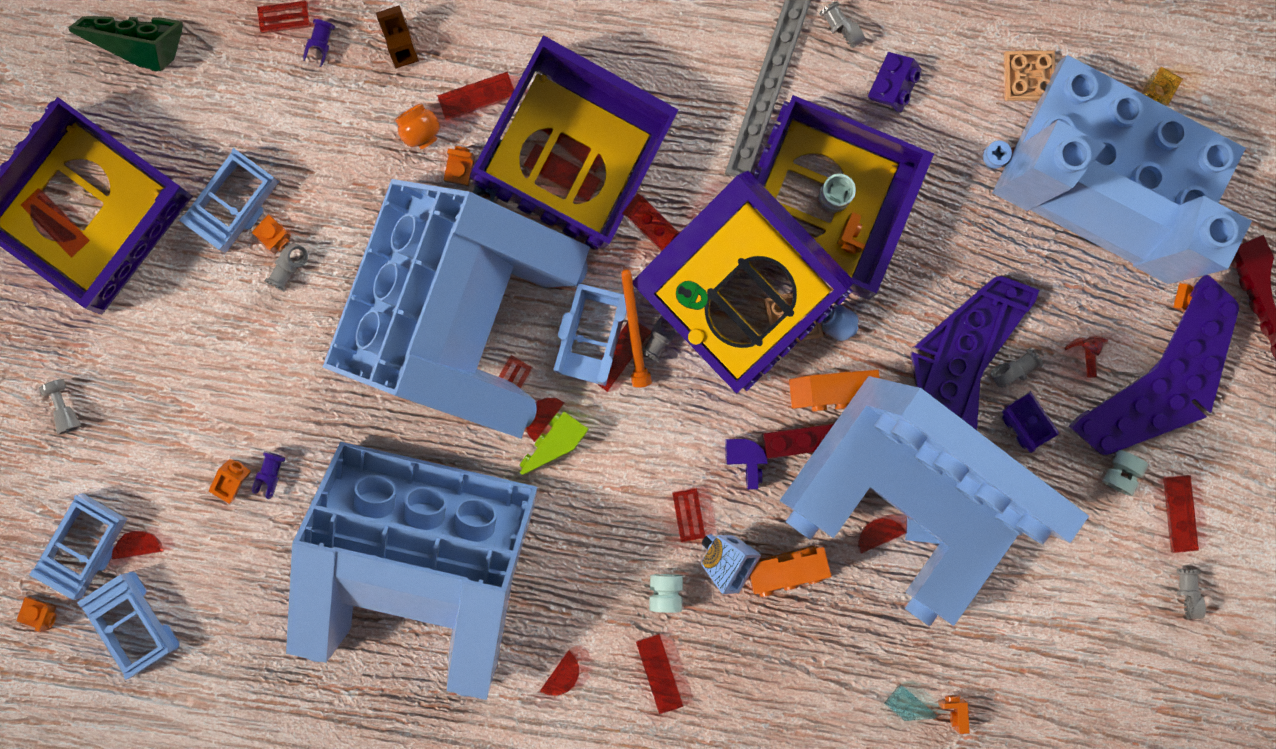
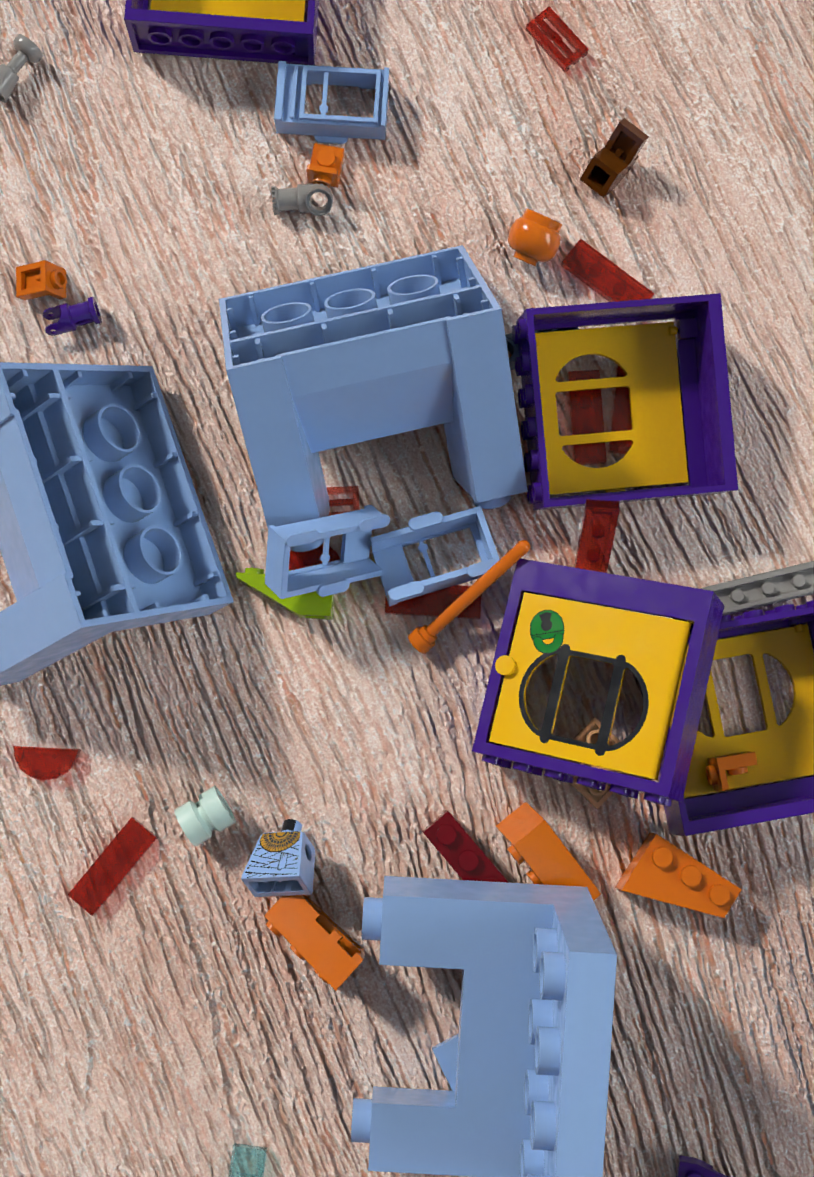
camera: 55 degrees right, 5 degrees down
(319, 38) = (559, 85): dark purple piece -> none
(459, 166) = (517, 303): orange bracket -> none
(561, 414) = (331, 576): none -> light blue piece
(658, 341) = (473, 631): light grey connector -> none
(692, 536) = (285, 805): clear red tile -> none
(749, 453) = (415, 807): dark purple brick -> none
(837, 193) = (763, 721): light aqua wheel -> none
(840, 323) = (624, 818): light blue head -> none
(879, 532) = (421, 1012): clear red tile -> none
(898, 315) = (676, 878): none -> orange wedge
(968, 343) = (698, 978): dark purple wing -> none
(1009, 372) = (696, 1047): light grey connector -> none
(1029, 422) = (654, 1106): dark purple bracket -> none
(1093, 347) = (786, 1124): clear red plant -> none

